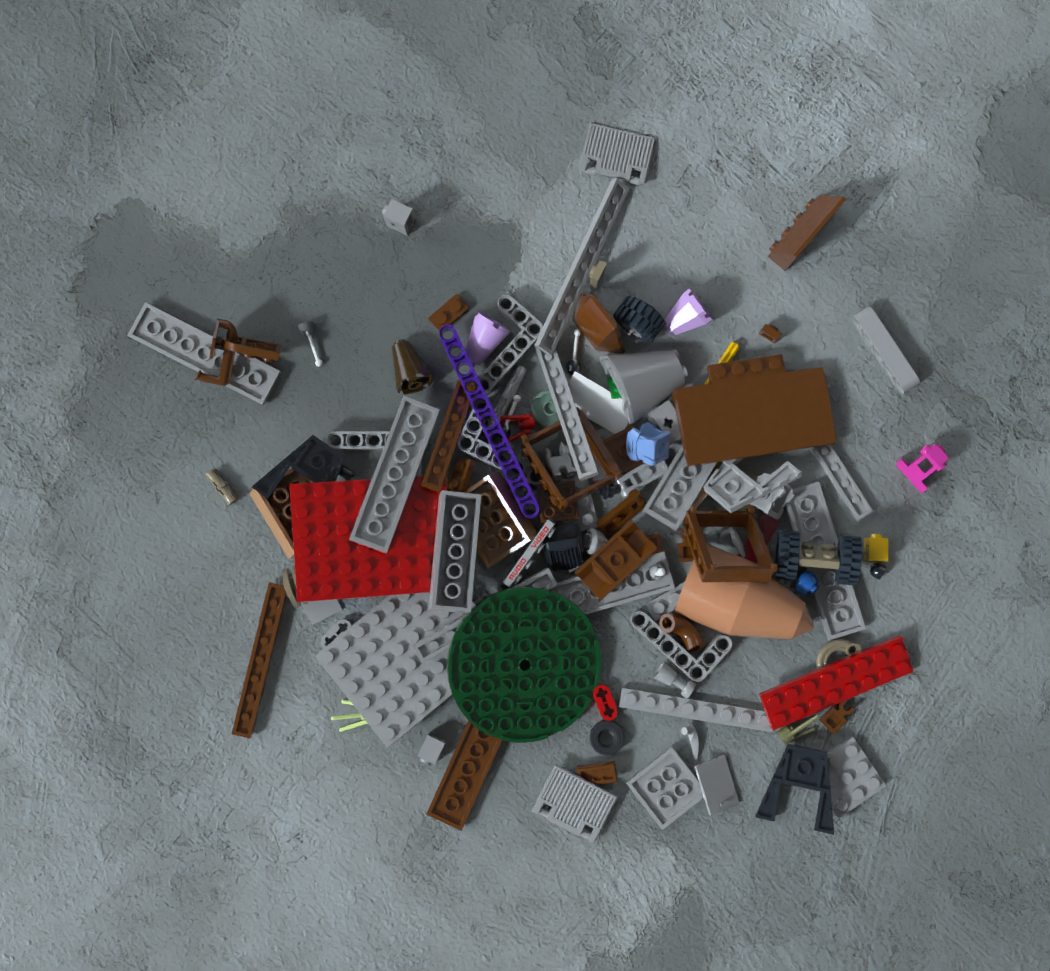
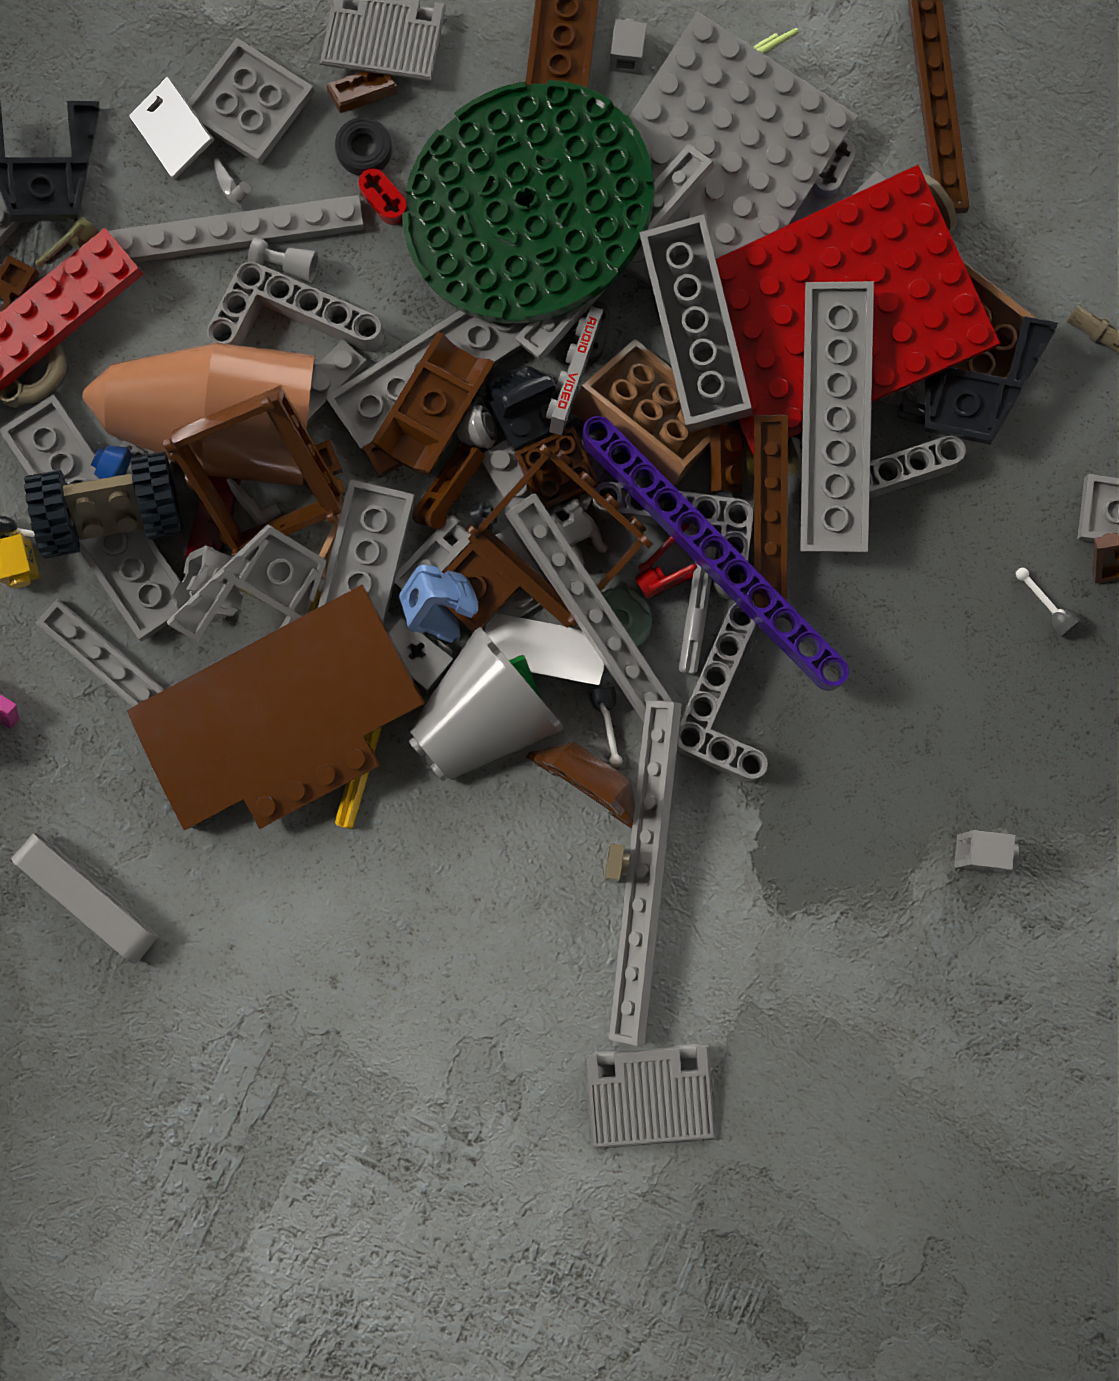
camera: 165 degrees right, 5 degrees down
(409, 368) = (874, 607): dark brown cone -> none
(448, 312) = (841, 723): reddish brown plate -> none
(484, 338) = (767, 697): lavender cone -> none
(506, 429) = (681, 560): white hinge -> none
(639, 319) = (519, 806): black wheel -> none
(654, 570) = (359, 405): light grey hinge -> none
(683, 628) = (283, 335): reddish brown cylinder -> none
(687, 314) = (438, 847): lavender cone -> none
(770, 333) = (289, 863): reddish brown plate -> none
(804, 229) = (279, 1059): reddish brown slope -> none

